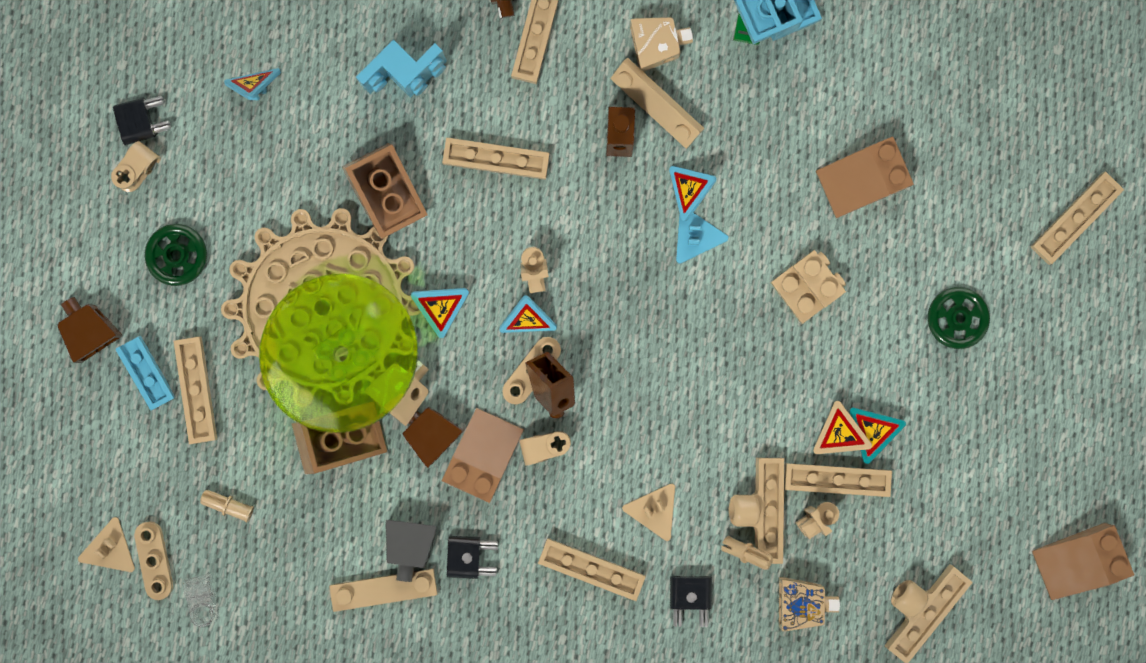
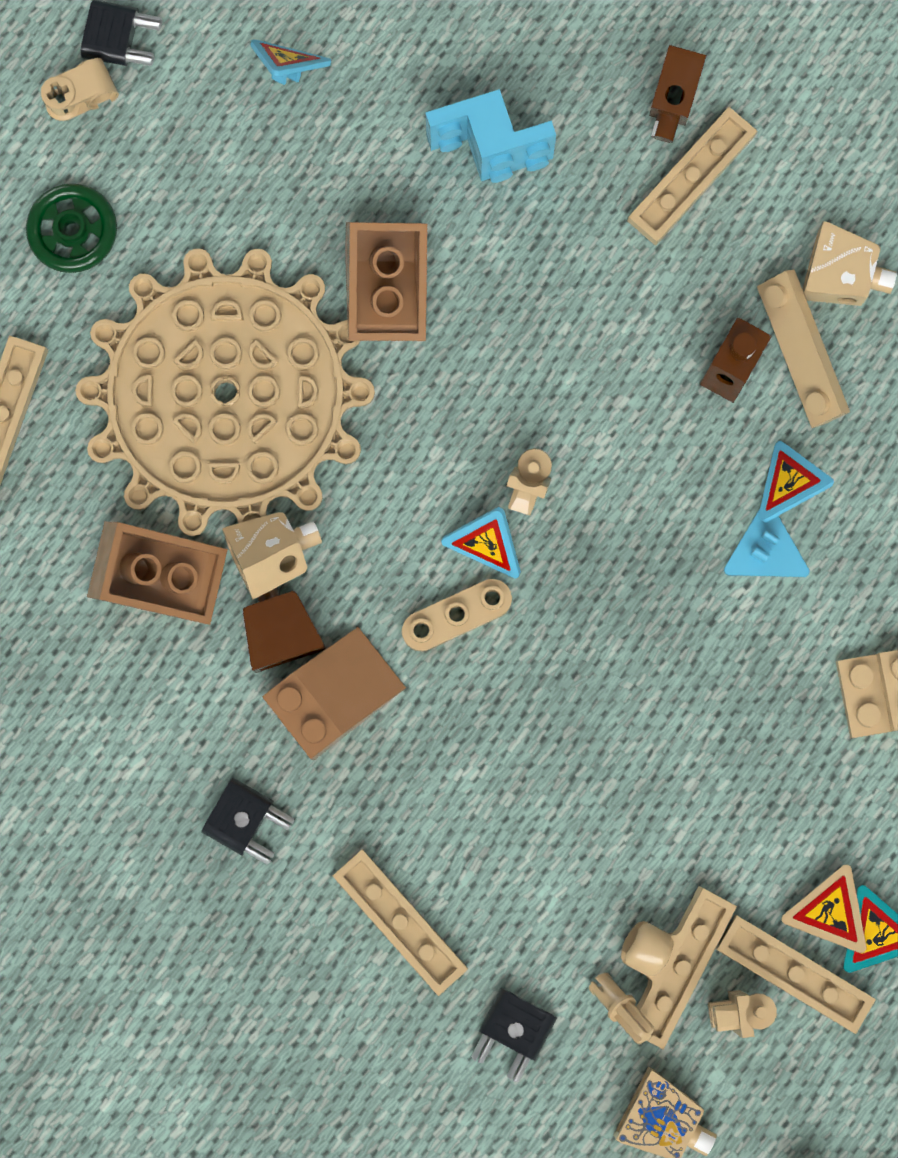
camera: 30 degrees right, 5 degrees down
(302, 344) = (207, 405): clear neon green dish -> none
(382, 590) = (108, 805): tan plate -> none
(408, 546) = (173, 763): dark grey torso -> none
(440, 307) = (379, 468): piece -> none
(495, 158) = (553, 314): tan plate -> none
(540, 449) = (414, 723): tan piece -> none
(551, 384) = (474, 645): reddish brown torso -> none
(654, 510) = (525, 888): tan piece -> none

